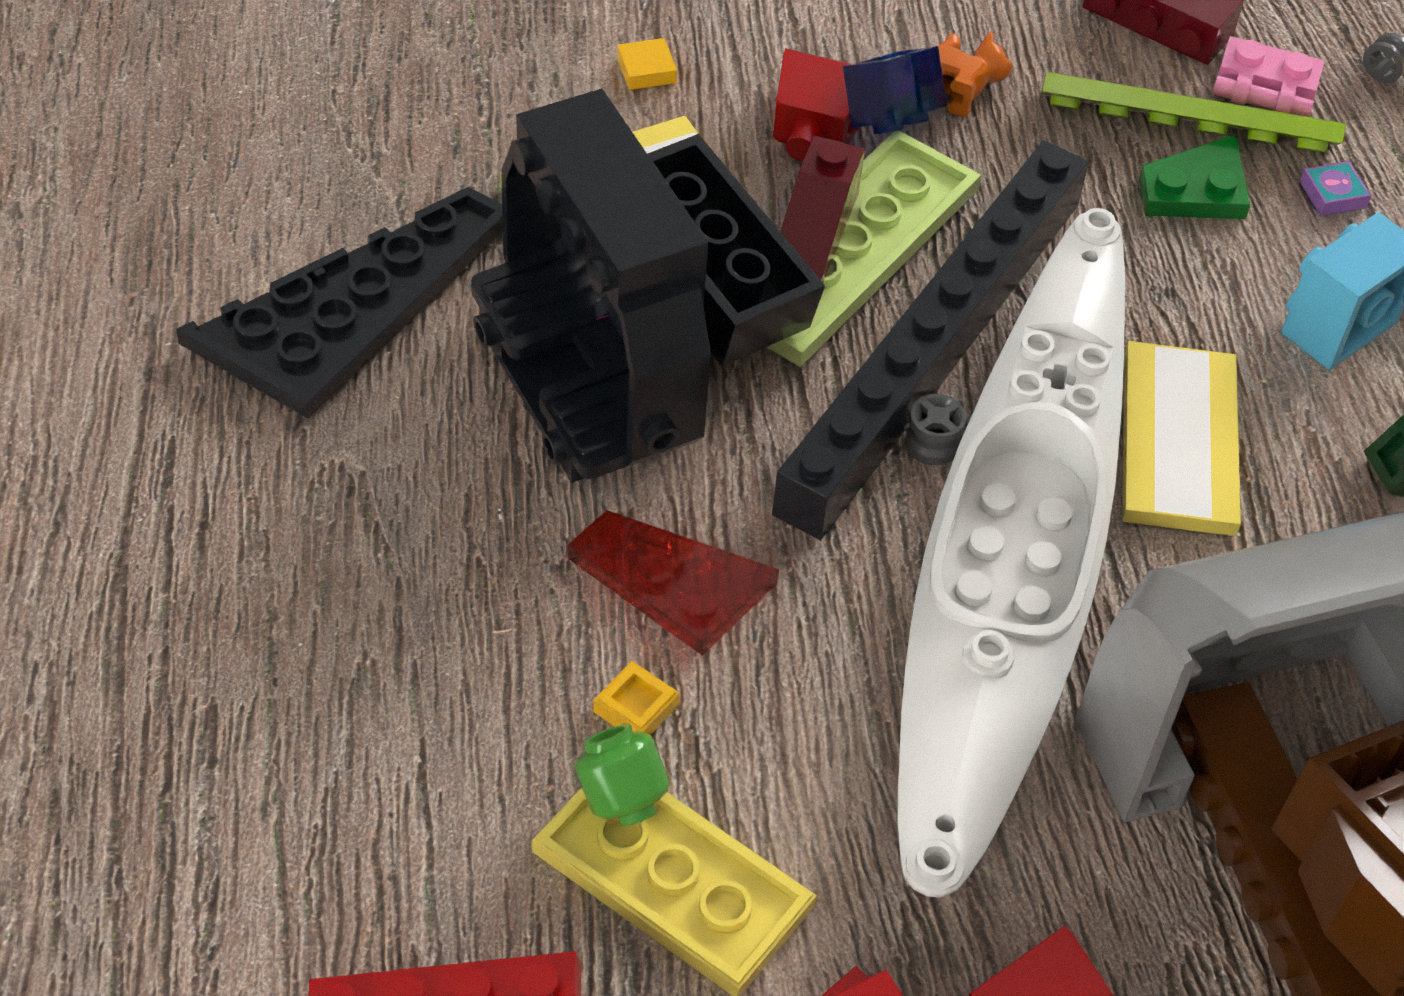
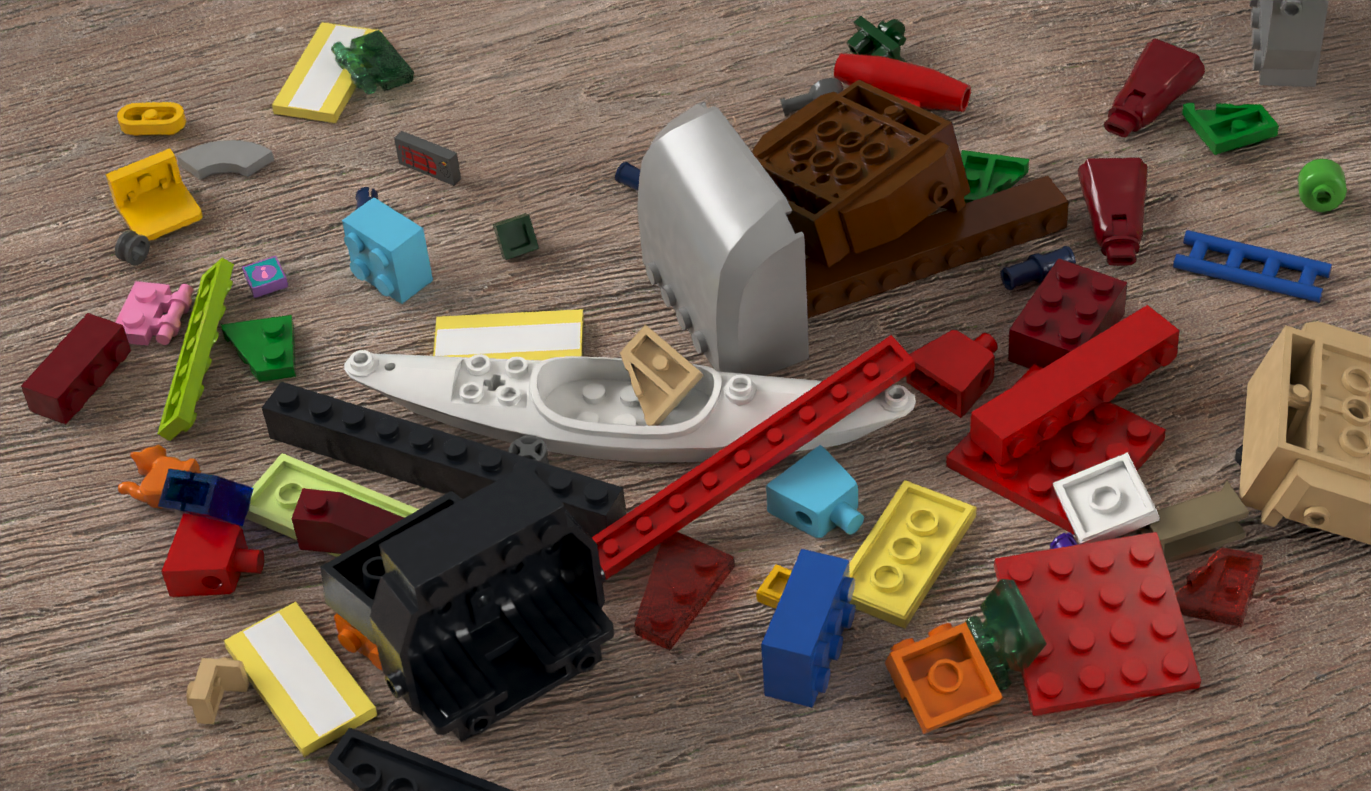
camera: 90 degrees left, 5 degrees down
(400, 859) = (942, 676): none -> orange plate
(425, 953) = (1012, 627): none -> clear green plate
(514, 682) = (808, 628): none -> blue brick
(619, 87) = (210, 683): none -> tan bracket
(622, 774) = (869, 559): bright green head -> none
(646, 64) = (156, 680): yellow tile -> none
(799, 763) = (815, 495): none -> medium azure torso
(865, 668) = (751, 455): none -> red plate
(1042, 557) = (657, 374): none -> tan wing

